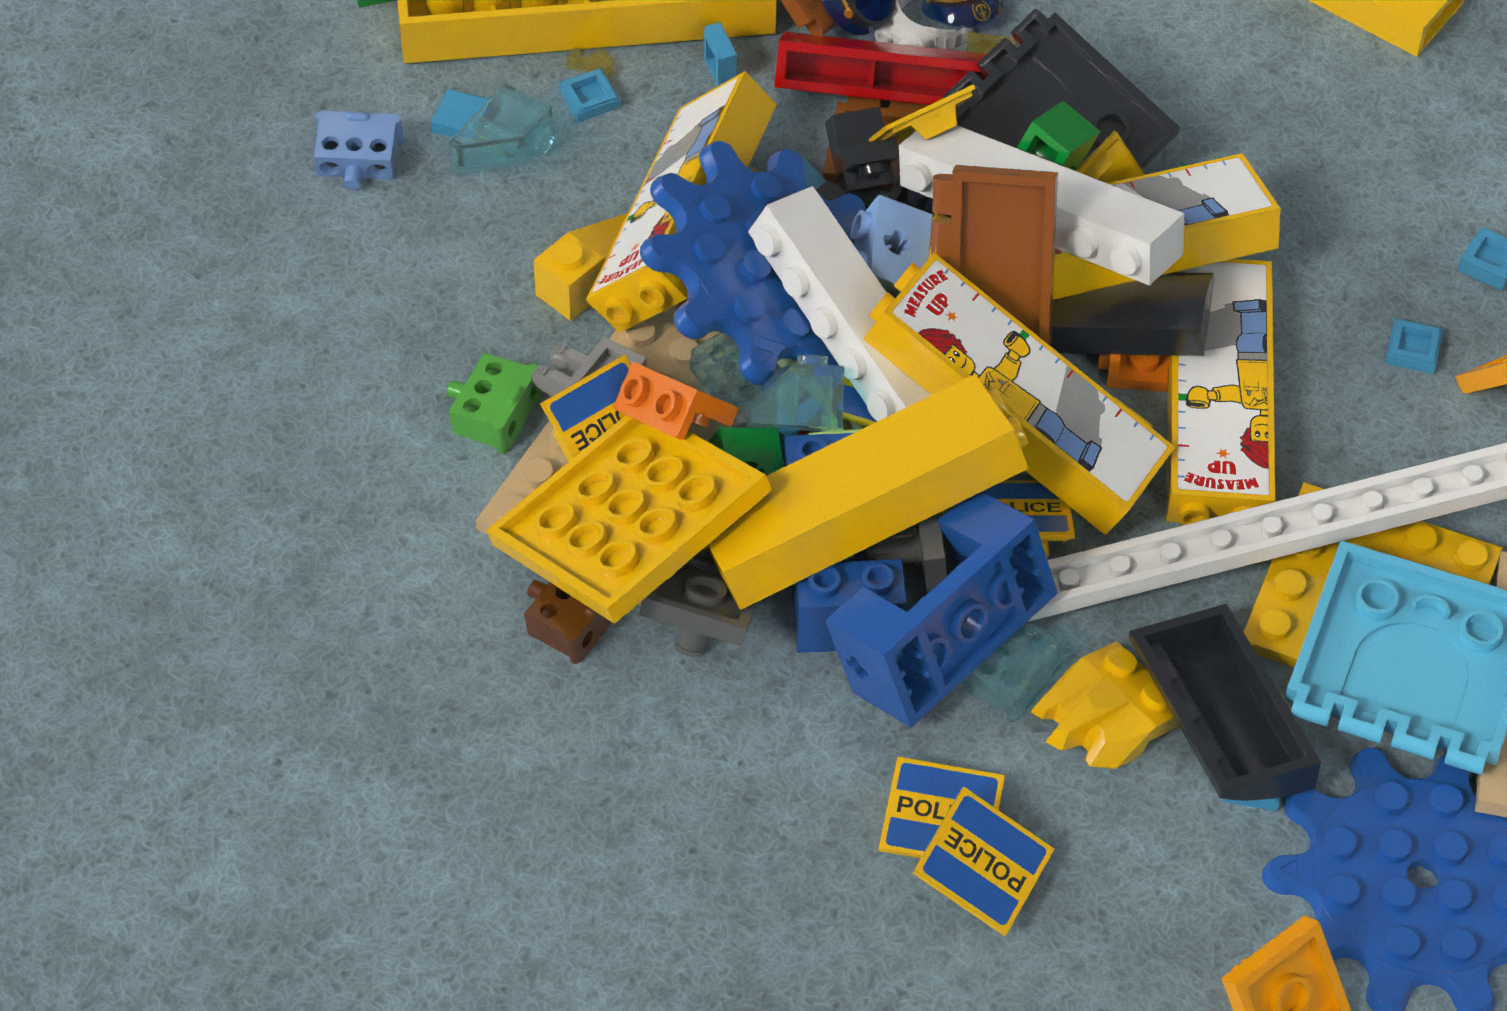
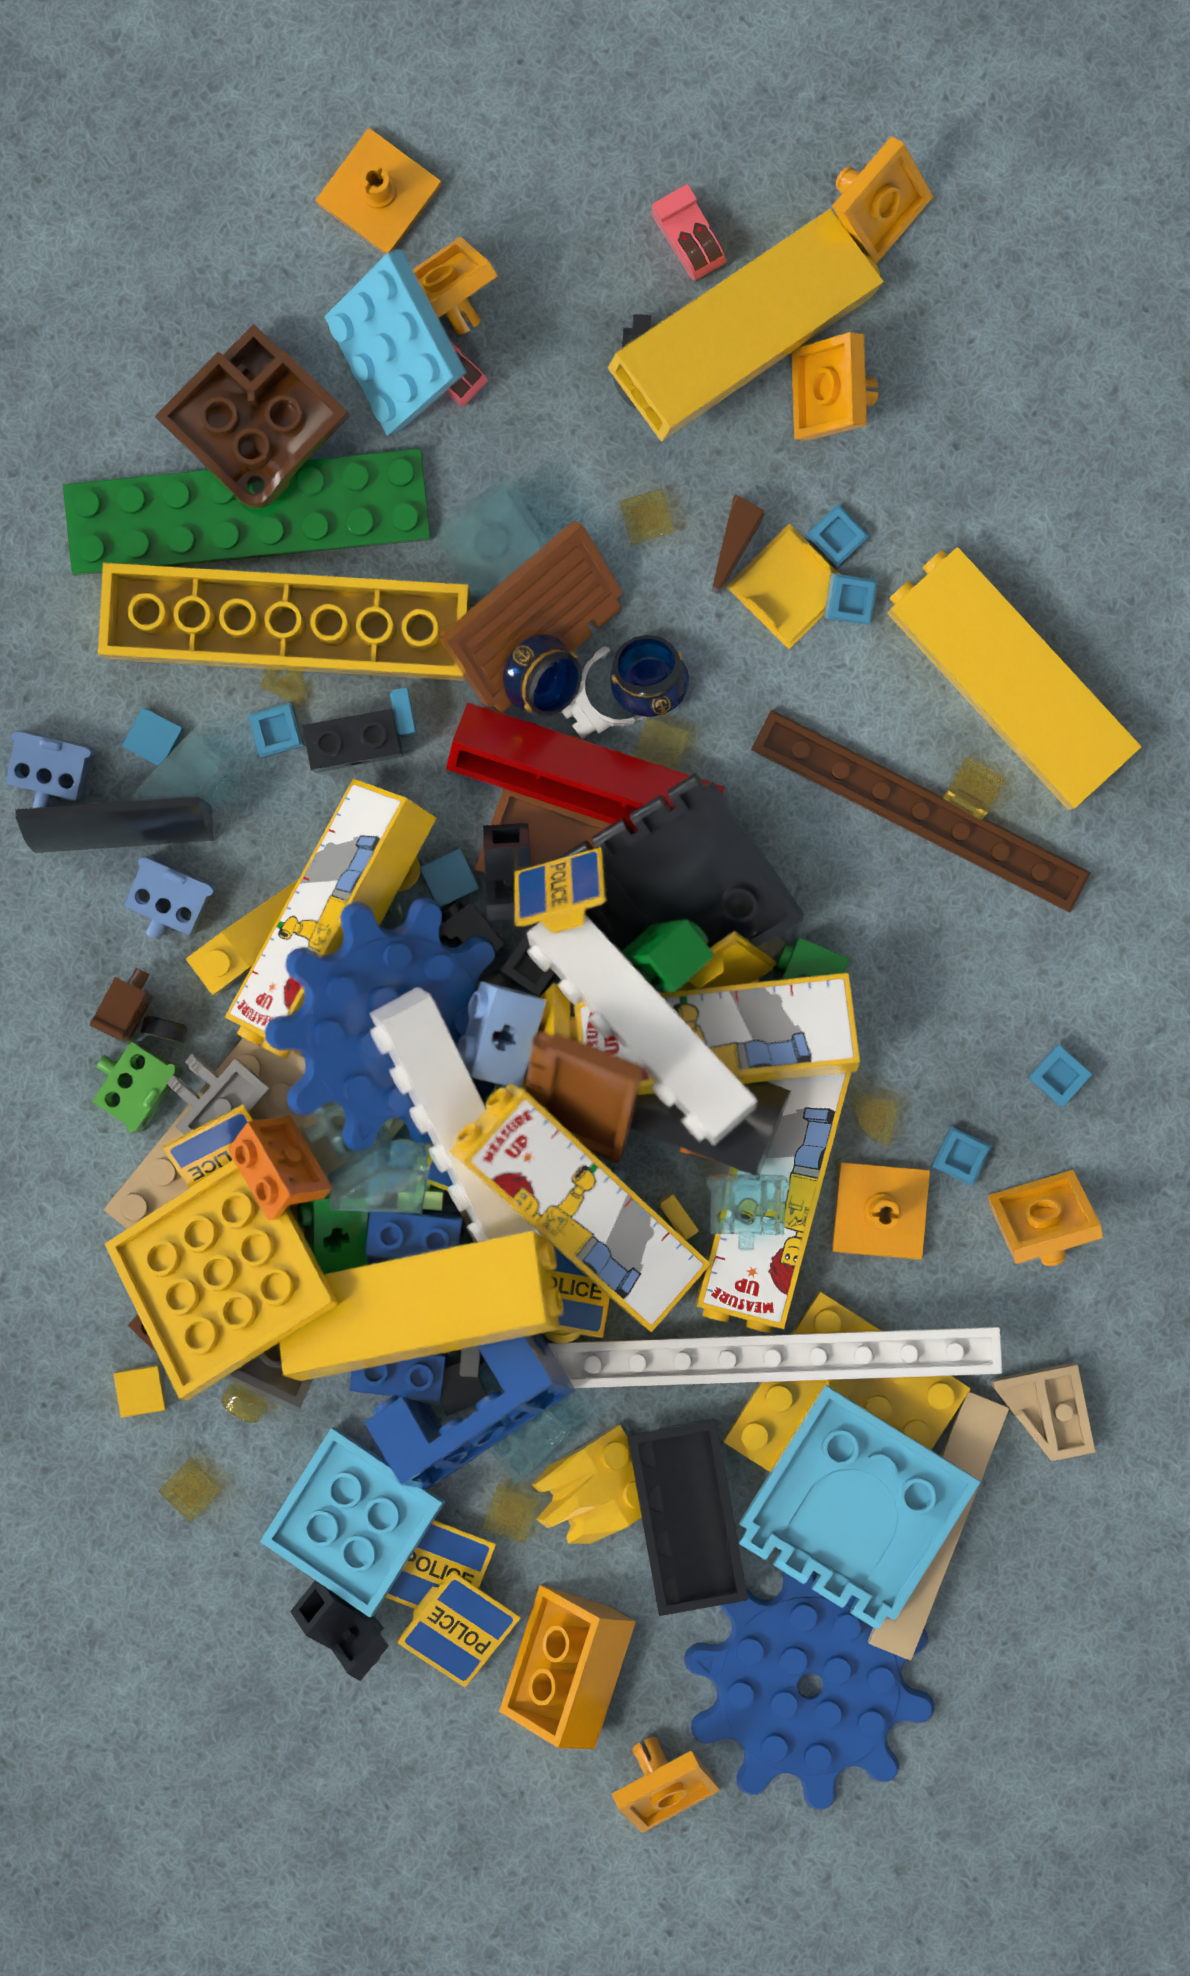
camera: 10 degrees right, 35 degrees up
(437, 164) = (116, 824): none -> black slope
(468, 322) = (123, 1007): none -> reddish brown piece
(502, 233) = (177, 886): none -> medium blue piece
(518, 343) = (164, 1029): none -> black tile
(547, 693) = (140, 1390): none -> yellow tile
(625, 785) = (190, 1489): none -> clear yellow tile
(668, 77) = (352, 741): none -> black brick
(673, 680) = (243, 1403): none -> clear yellow tile
(828, 775) = (351, 1522): none -> medium azure plate
(836, 887) = (341, 1628): none -> black brick
(1013, 752) = (510, 1513): none -> clear yellow tile
(1126, 893) = (567, 1668): none -> light orange slope
(1199, 383) = (743, 1193): none -> clear light blue piece
(1272, 73) = (920, 811): none -> reddish brown tile
(1310, 323) = (875, 1116): none -> clear yellow tile
(1315, 43) = (973, 788): none -> clear yellow tile
(1344, 405) = (880, 1210): none -> light orange tile

